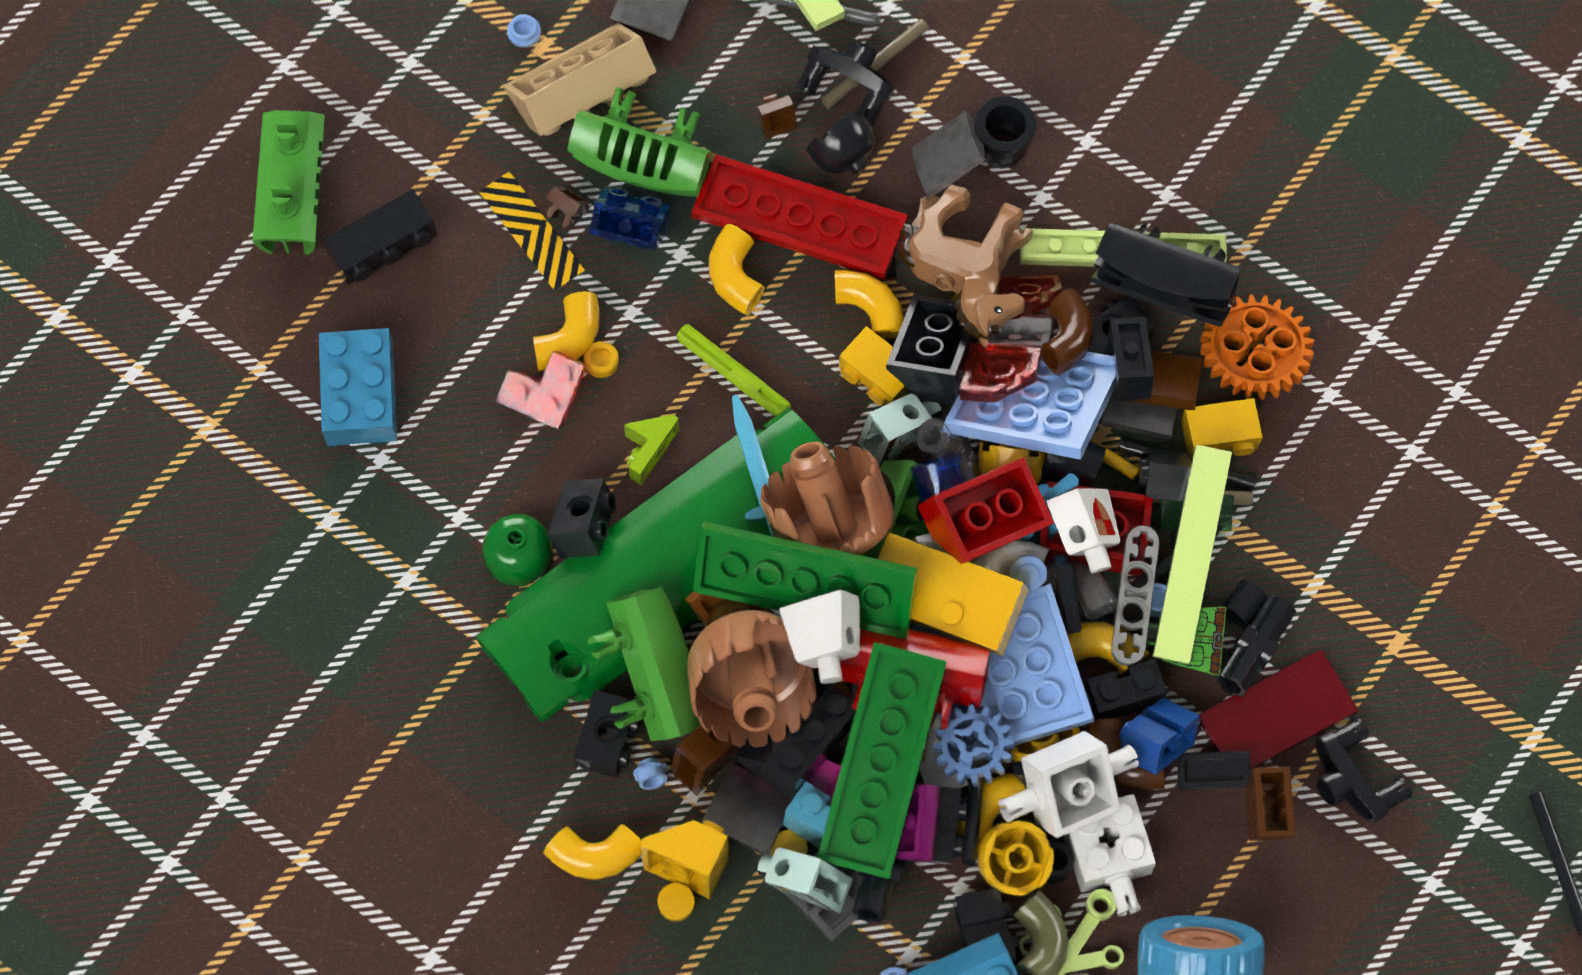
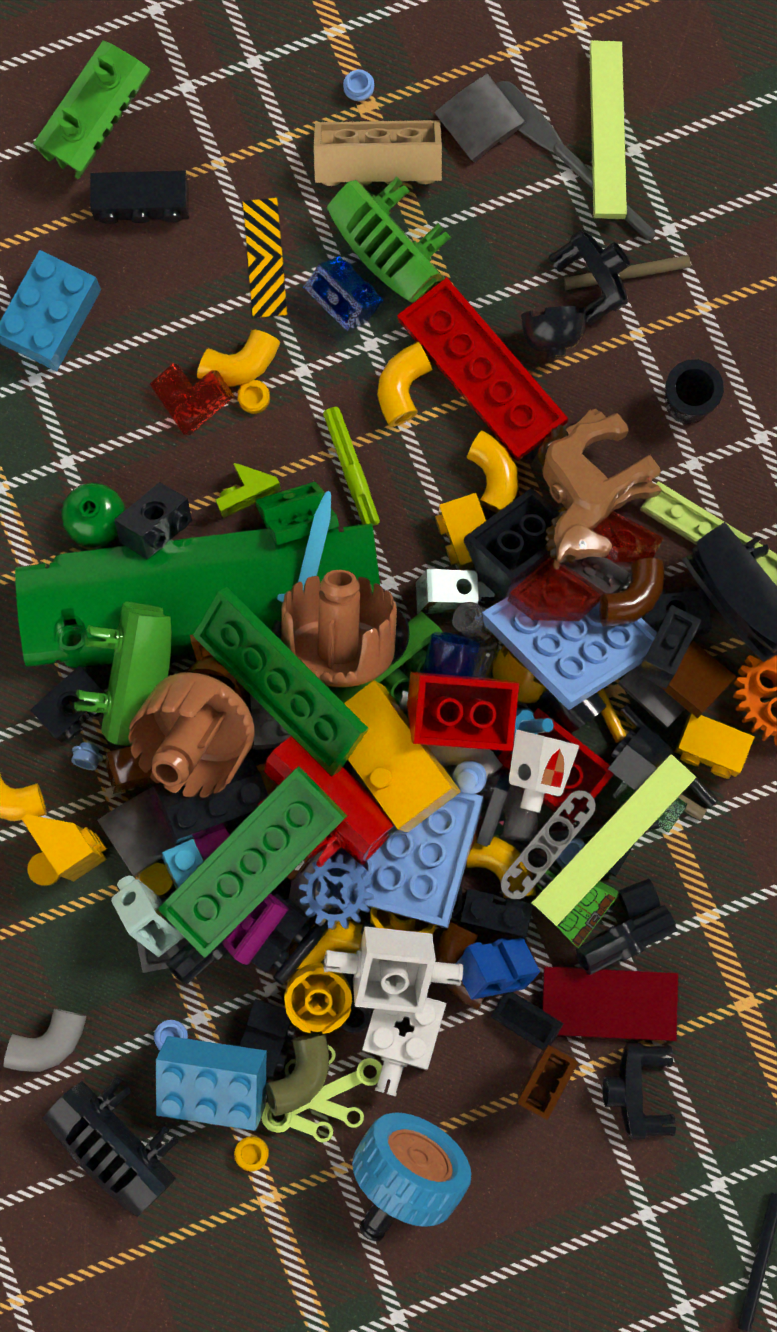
camera: 35 degrees right, 10 degrees up
(569, 203) = (305, 251): reddish brown tile -> none
(707, 438) = (291, 512): none -> green slope
(776, 115) = (517, 272): reddish brown tile -> none
(824, 632) = (265, 735): white torso -> none
(948, 154) = (632, 385): flat silver slope -> none

